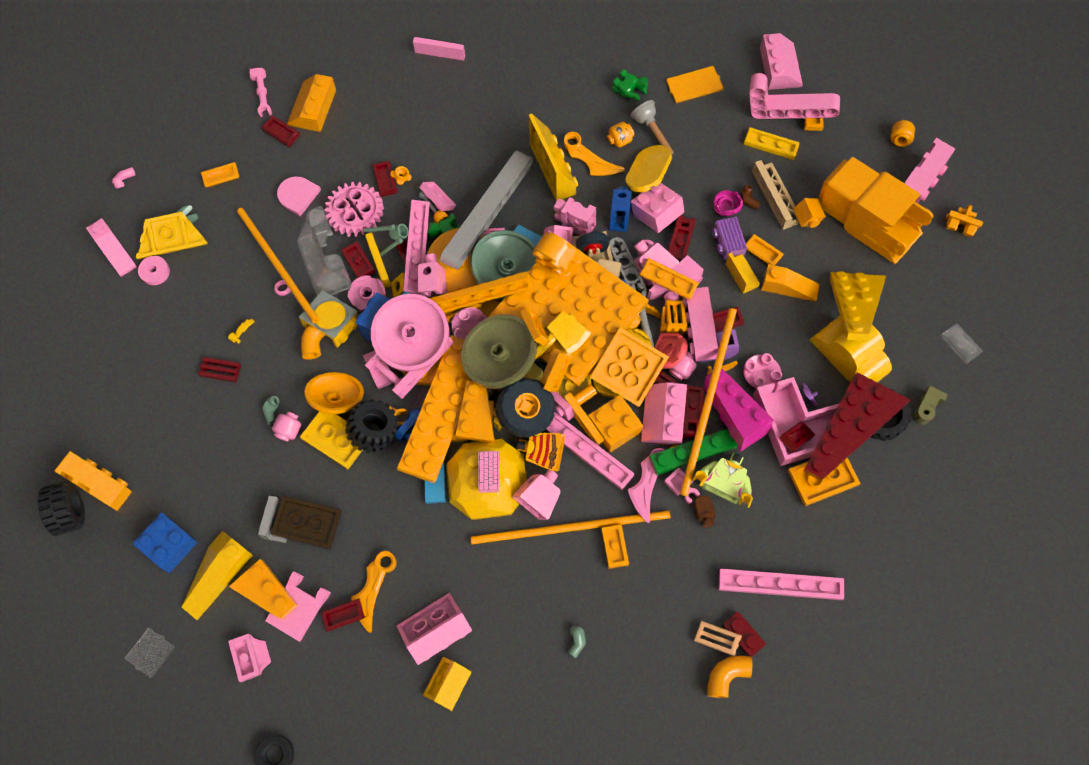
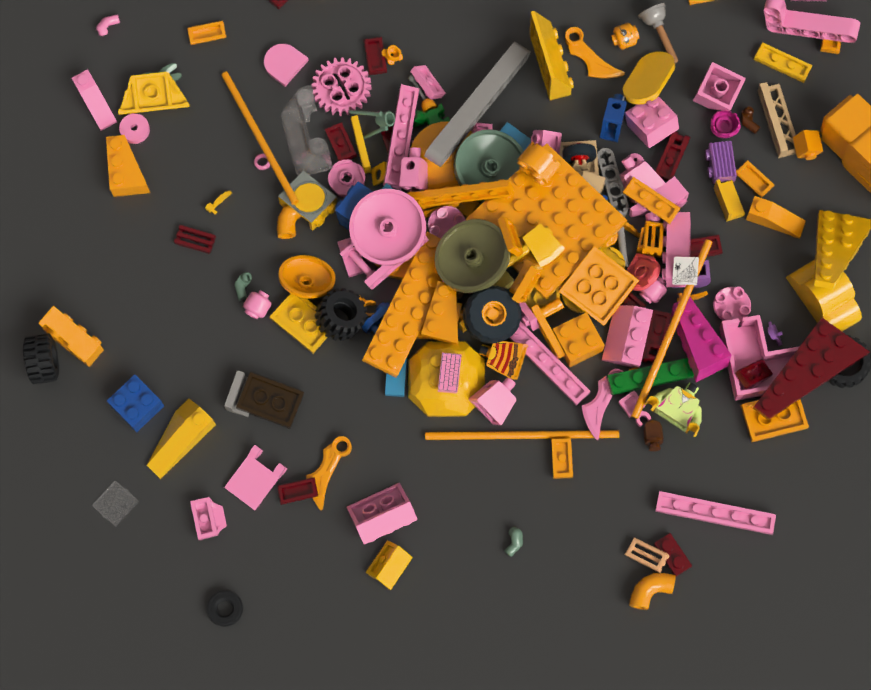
camera: 10 degrees right, 5 degrees up
(143, 309) = (123, 169): none -> light orange wedge
(265, 590) = (226, 458): light orange wing -> none
(575, 215) = (565, 122): bright pink hips -> none
(714, 341) = (685, 270): none -> white sticker
(716, 171) = (719, 88): none -> bright pink slope

